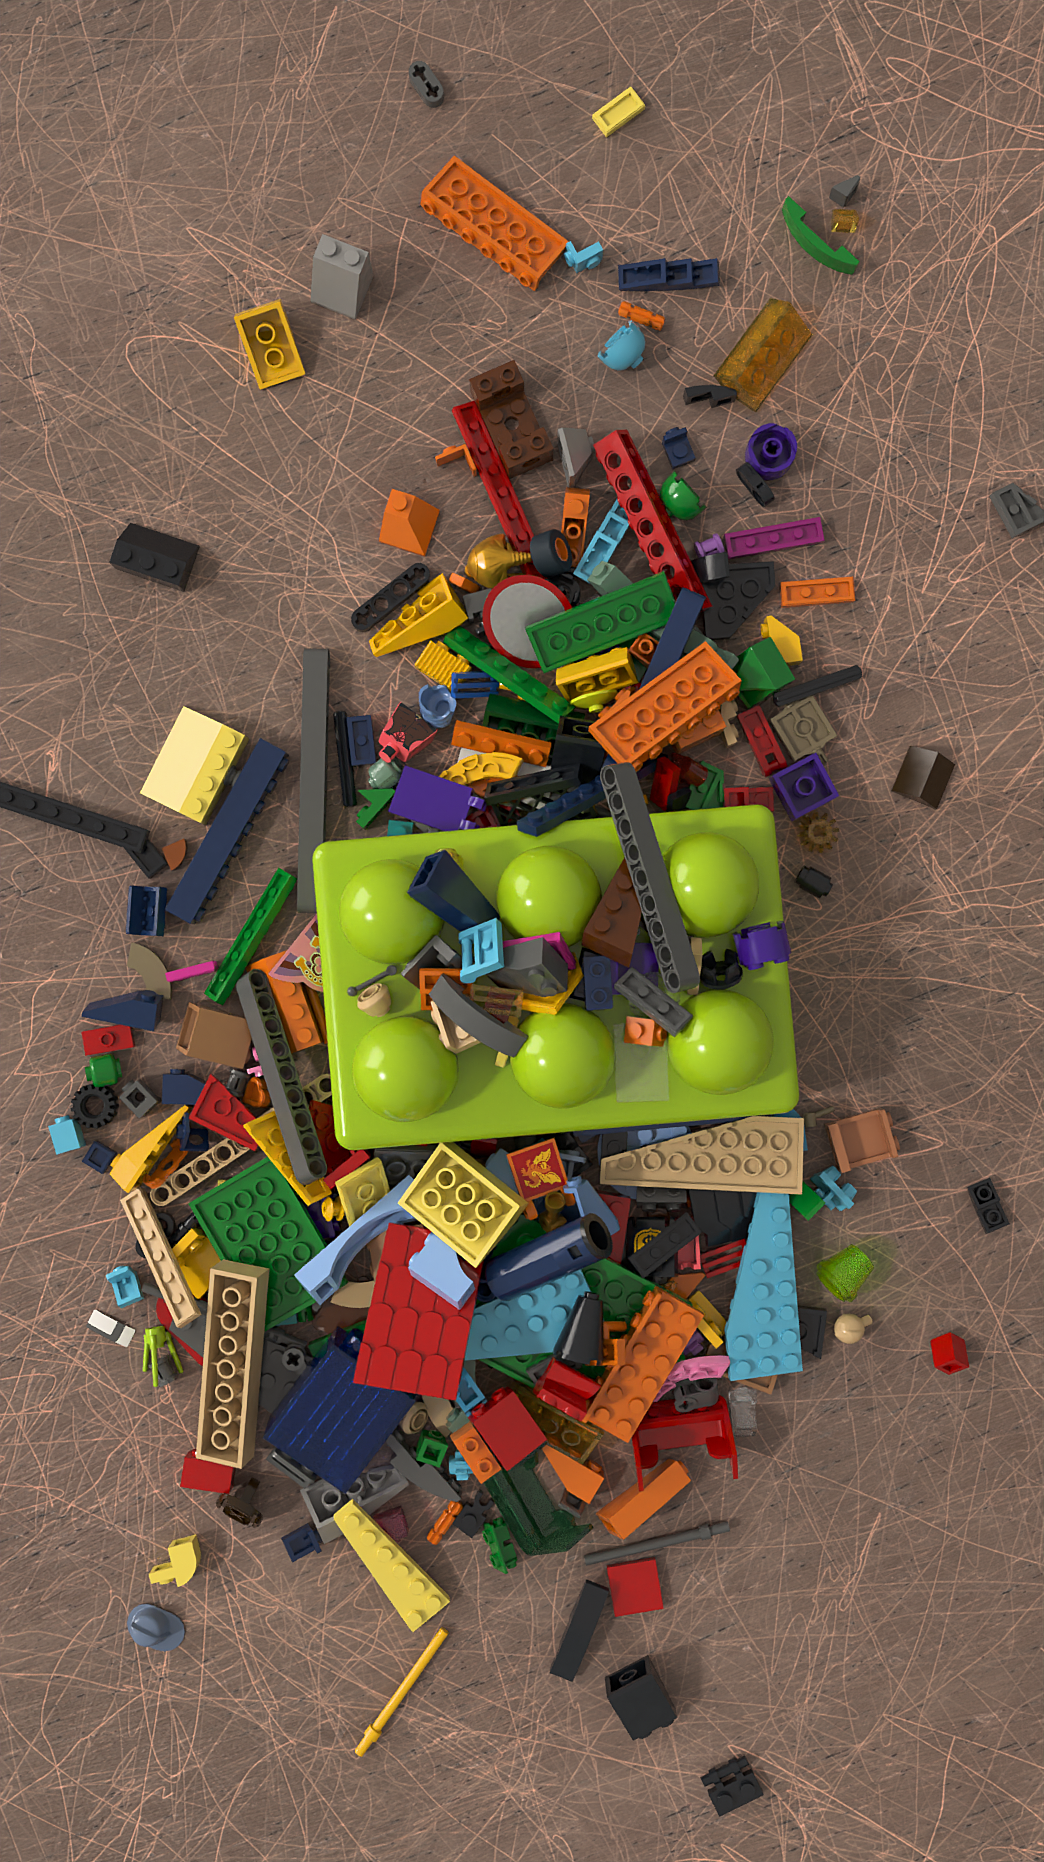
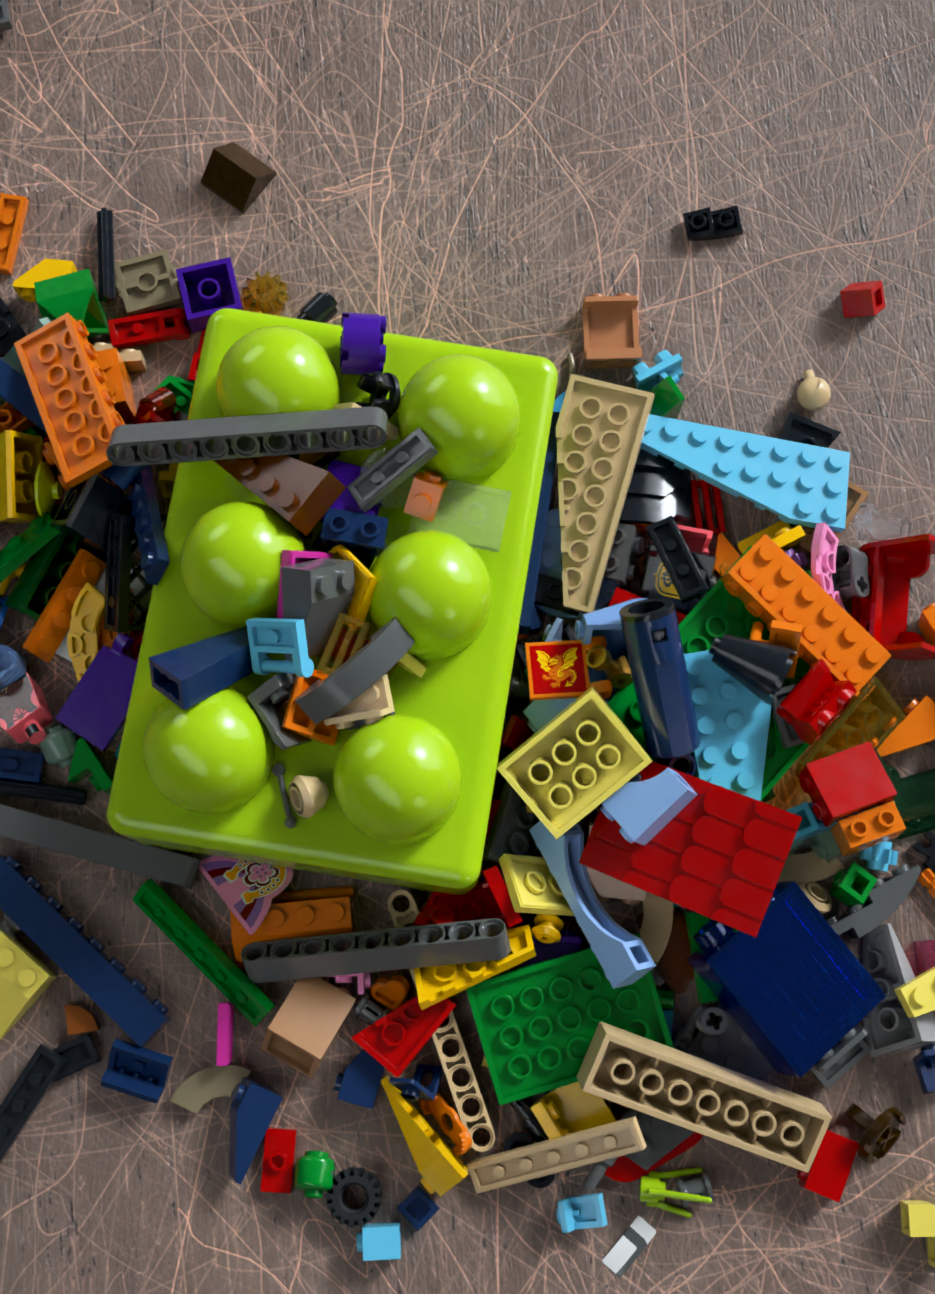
camera: 85 degrees left, 10 degrees down
(129, 1097) = (371, 1133): dark grey brick -> none
(845, 1272) = (752, 382): clear neon green piece -> none

